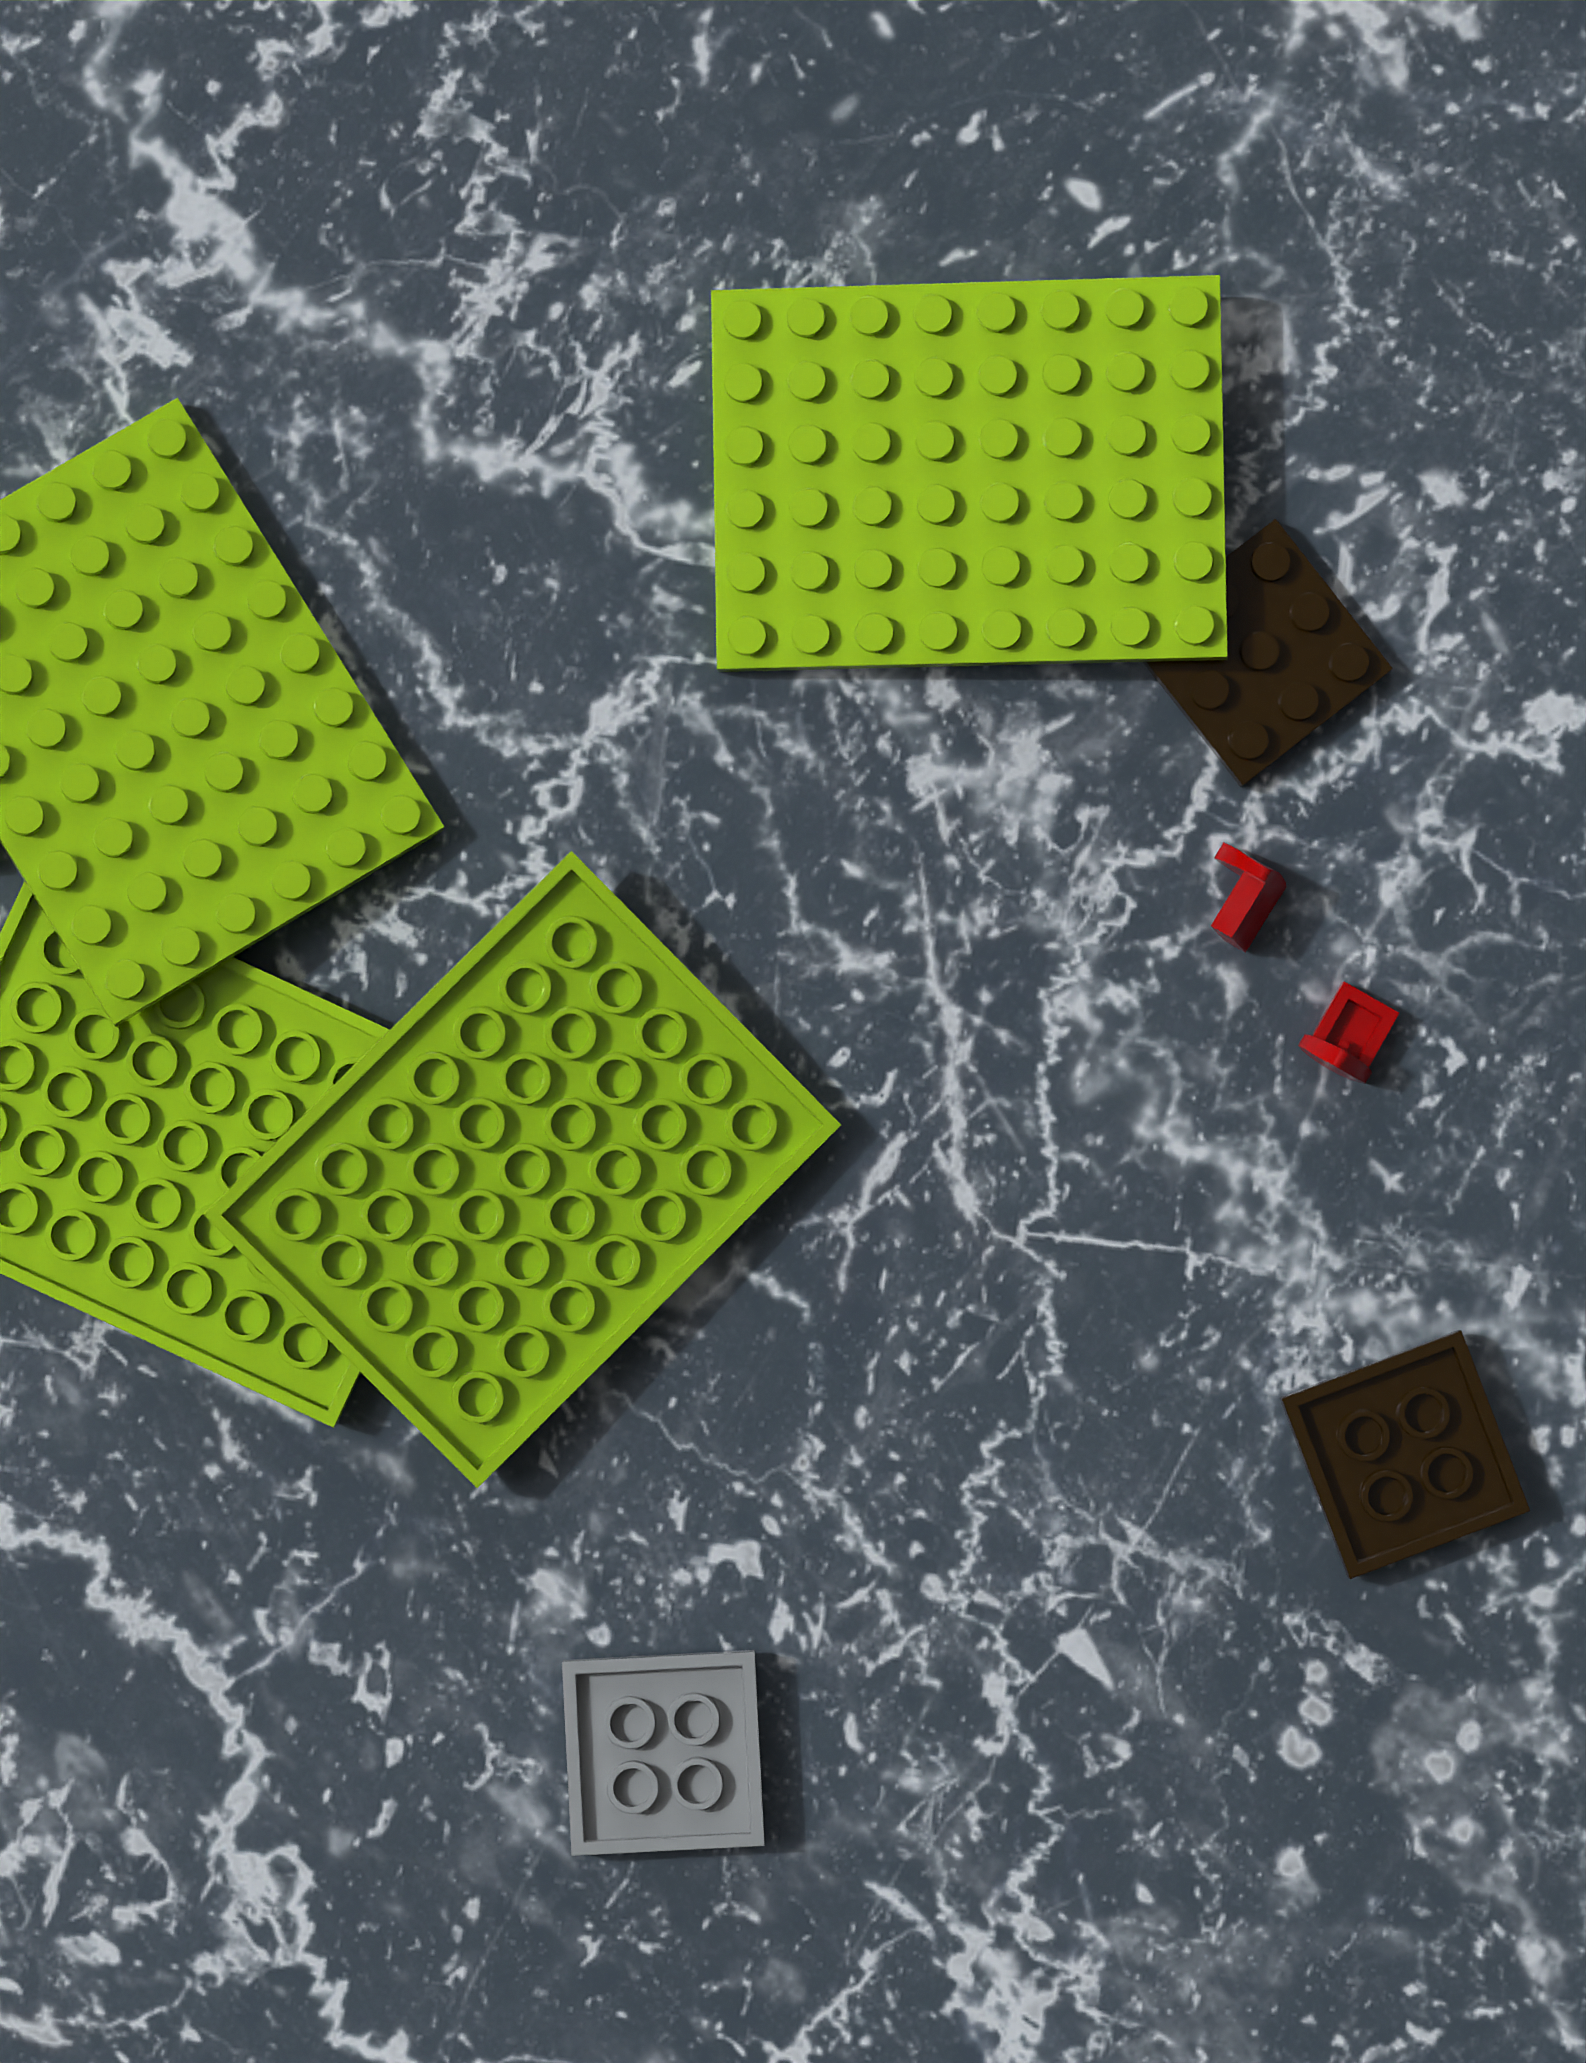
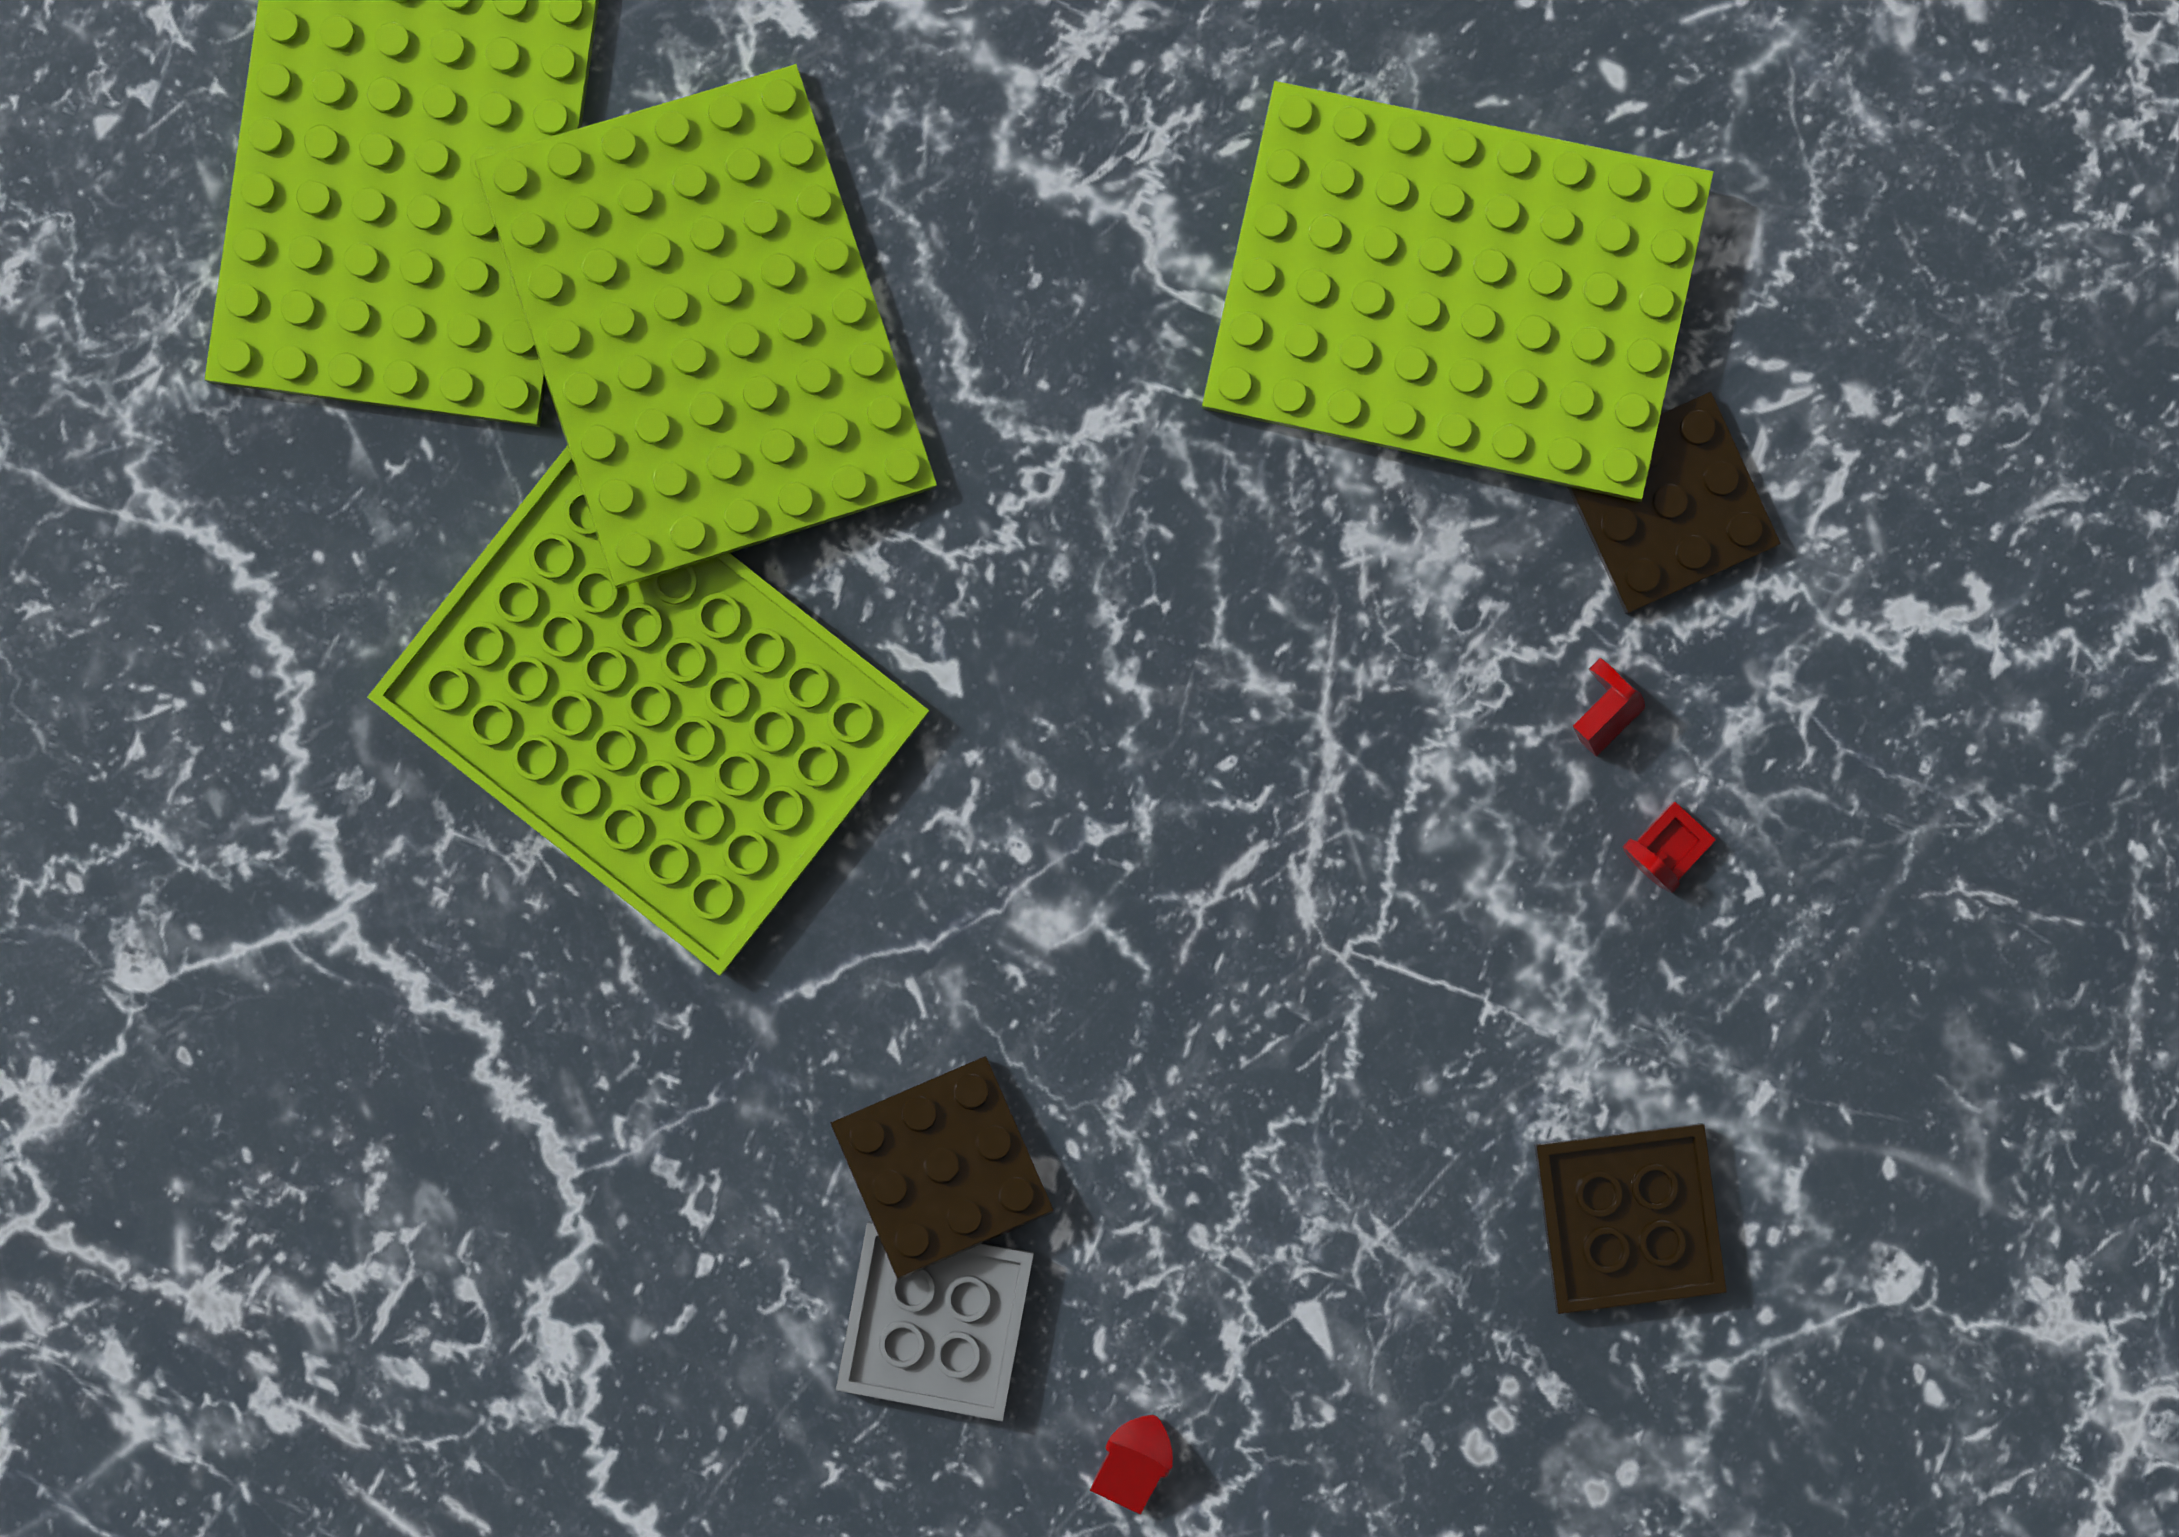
camera: 10 degrees right, 0 degrees up
(522, 1169) = (934, 793): lime plate -> none
(630, 1581) = (941, 1167): none -> dark brown plate
(921, 1856) = (1134, 1463): none -> red tile

